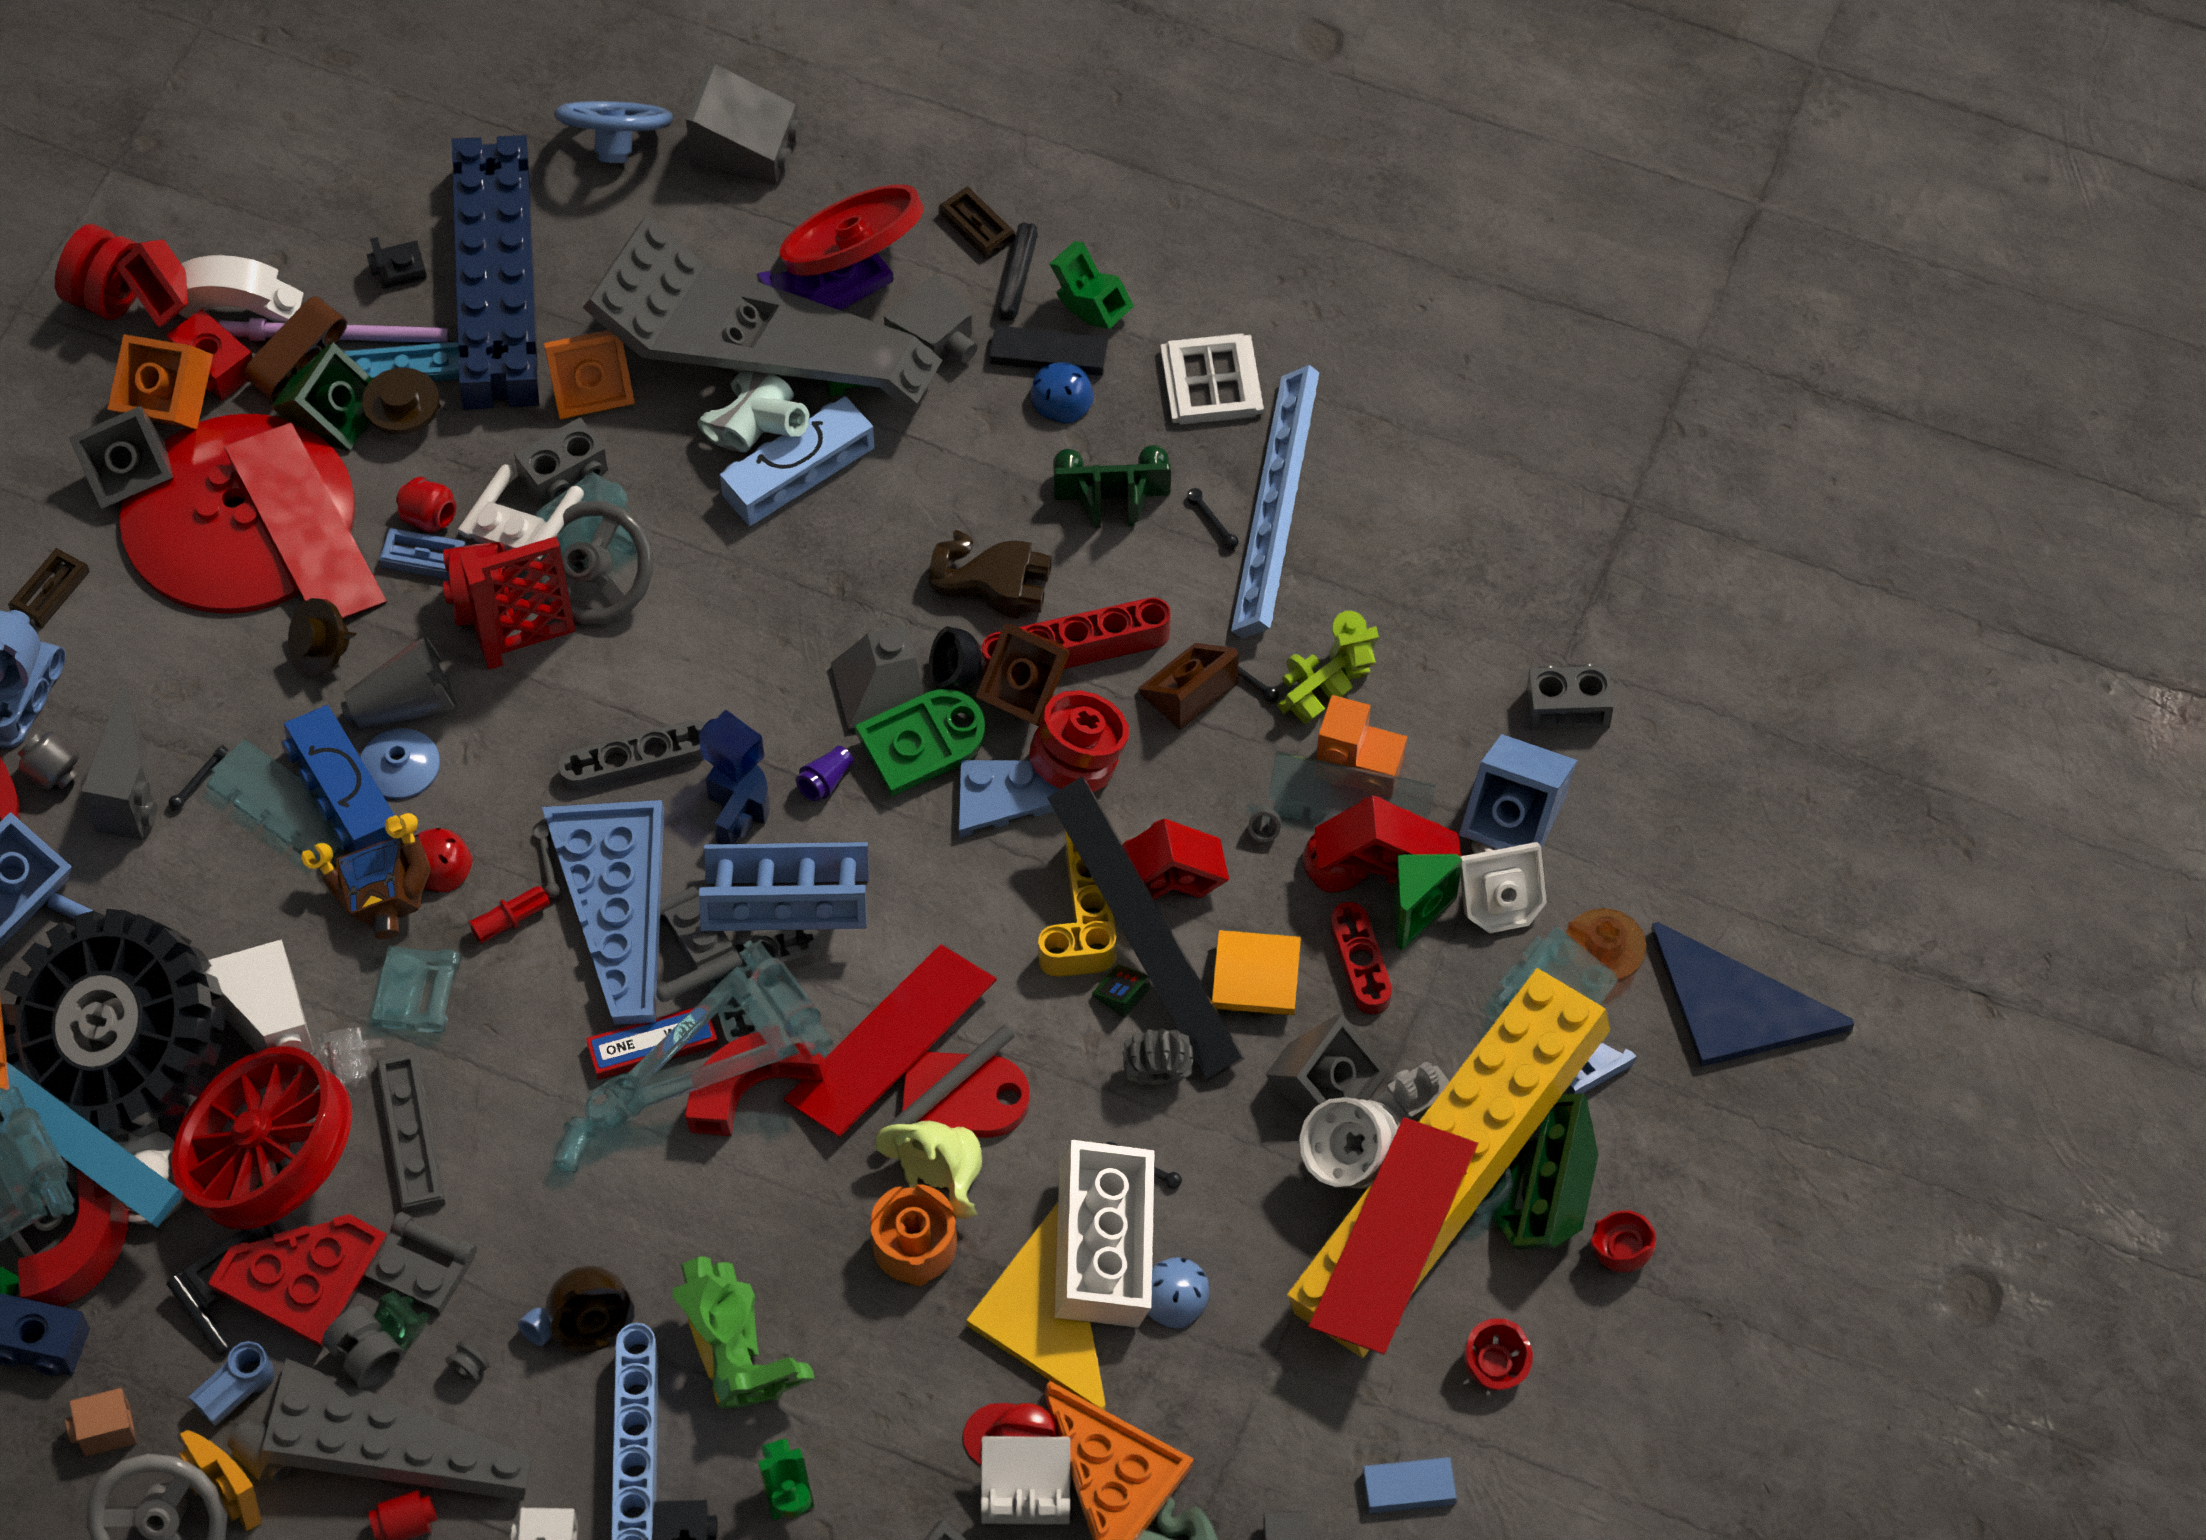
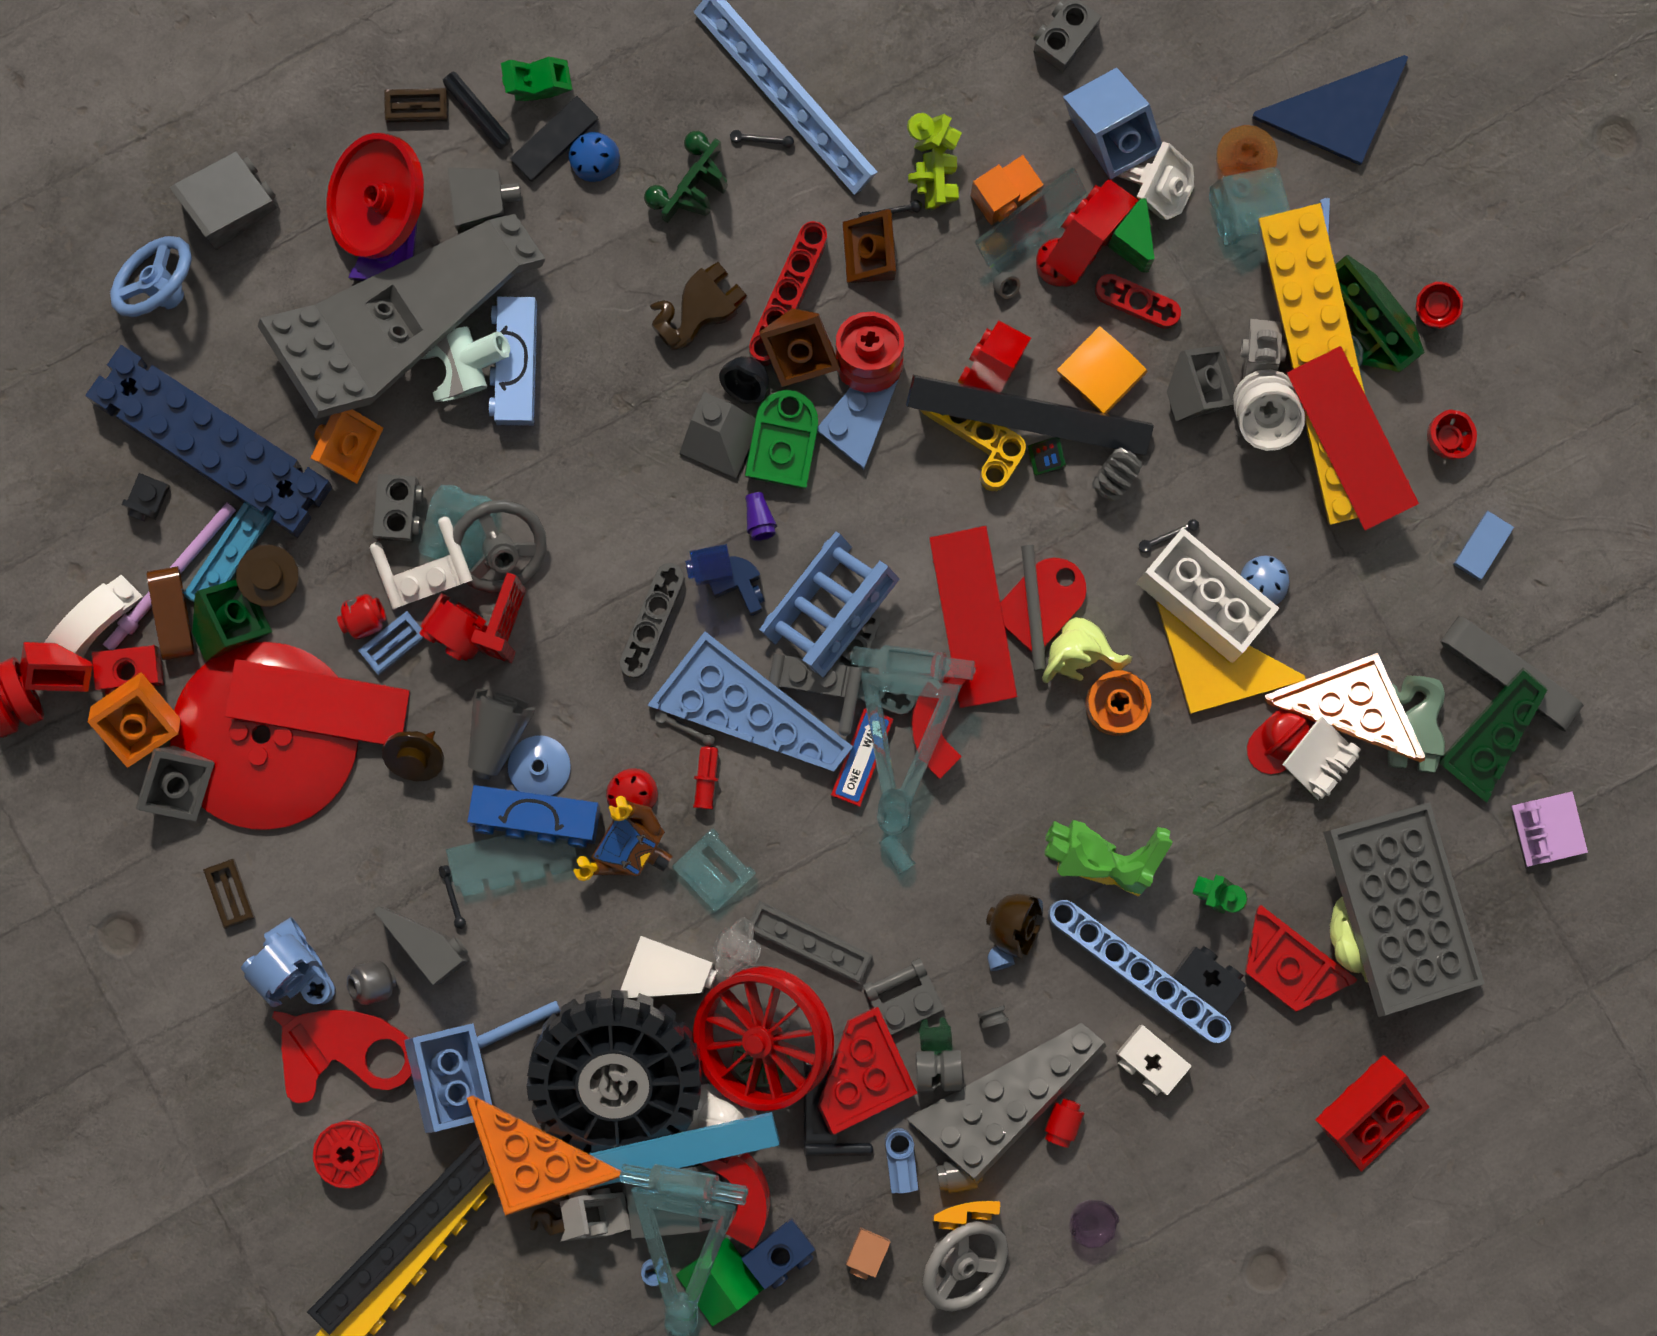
camera: 55 degrees left, 25 degrees up
(1178, 383) = (643, 78): white piece -> none

